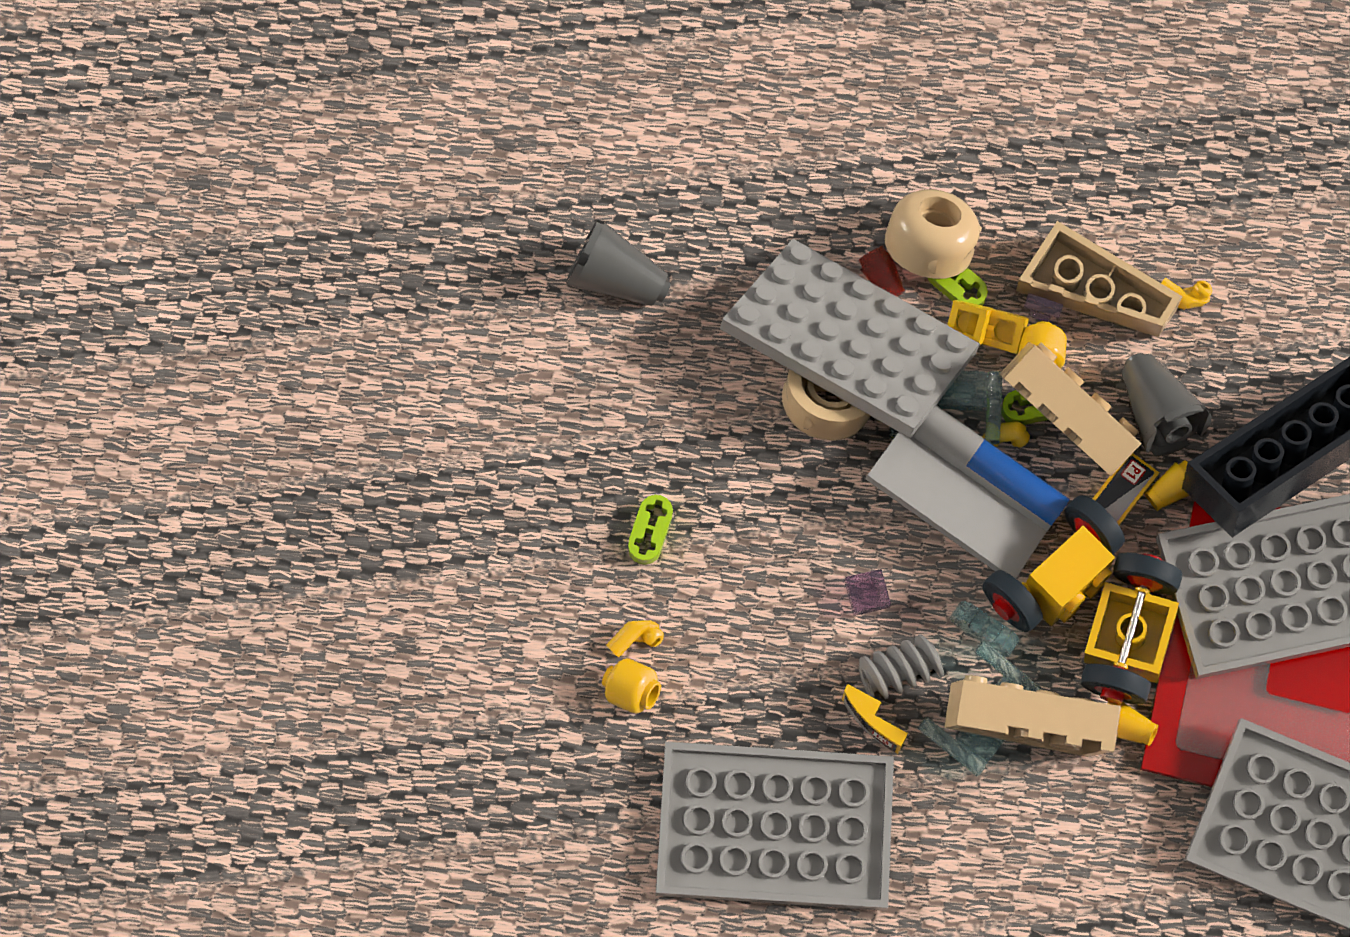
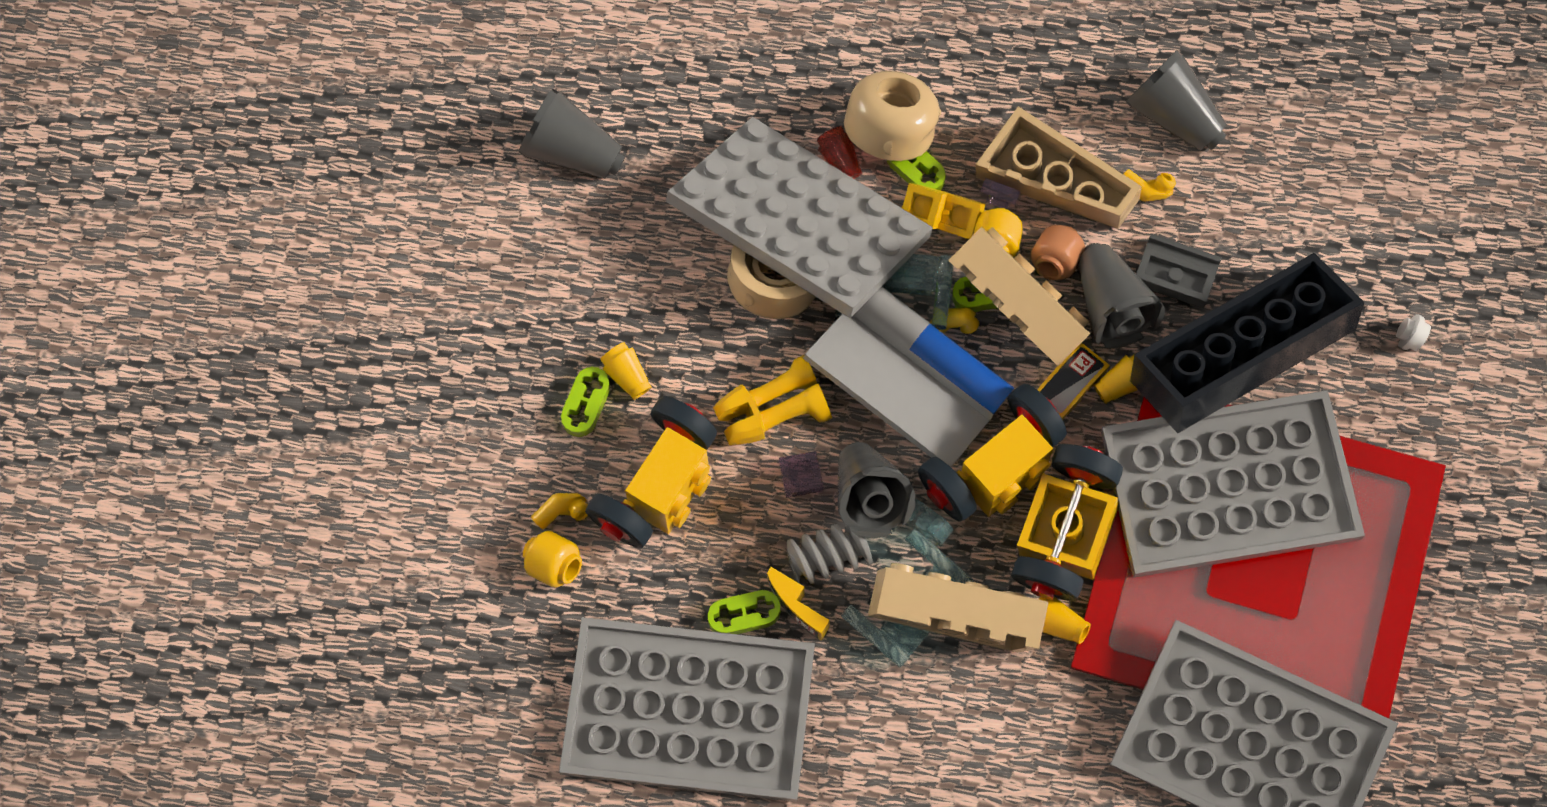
camera: 10 degrees right, 0 degrees up
(688, 497) = (625, 369): none -> yellow cone
(741, 603) = (665, 481): none -> brick
(808, 523) = (742, 401): none -> yellow piece
(819, 721) = (743, 603): none -> lime beam
(941, 606) = (872, 492): none -> dark grey cone
(1102, 363) = (1057, 252): none -> nougat head
(1211, 211) = (1180, 104): none -> dark grey cone
(1220, 376) = (1178, 270): none -> dark grey plate

